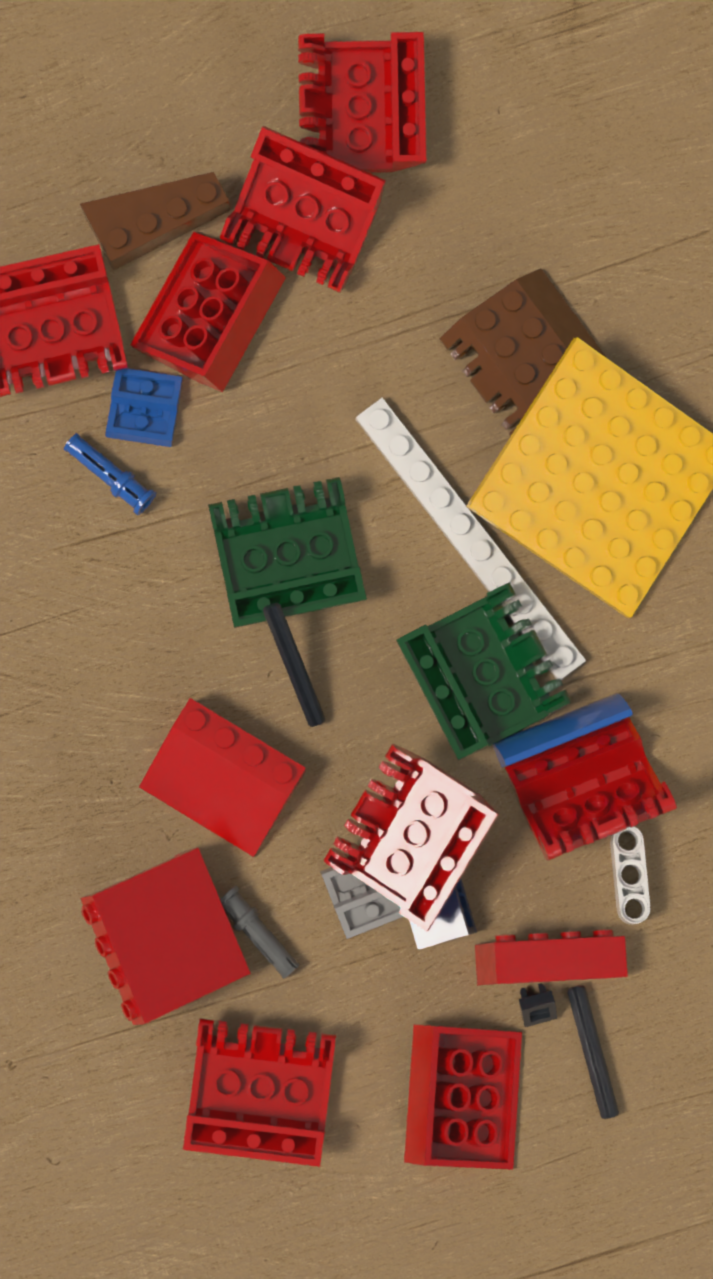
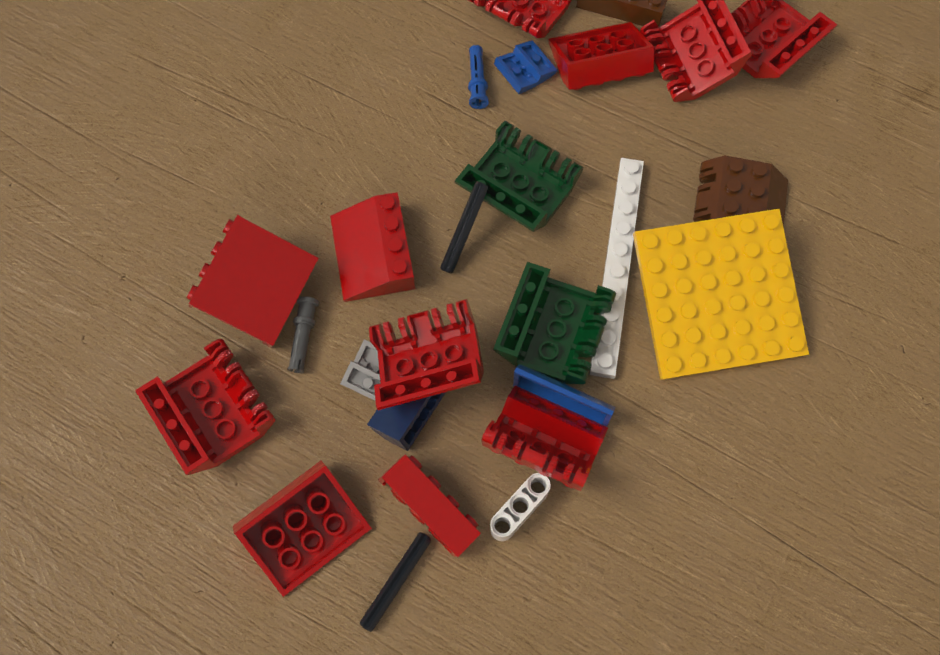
camera: 50 degrees right, 15 degrees down
(538, 1007) = (392, 522): black tile -> none

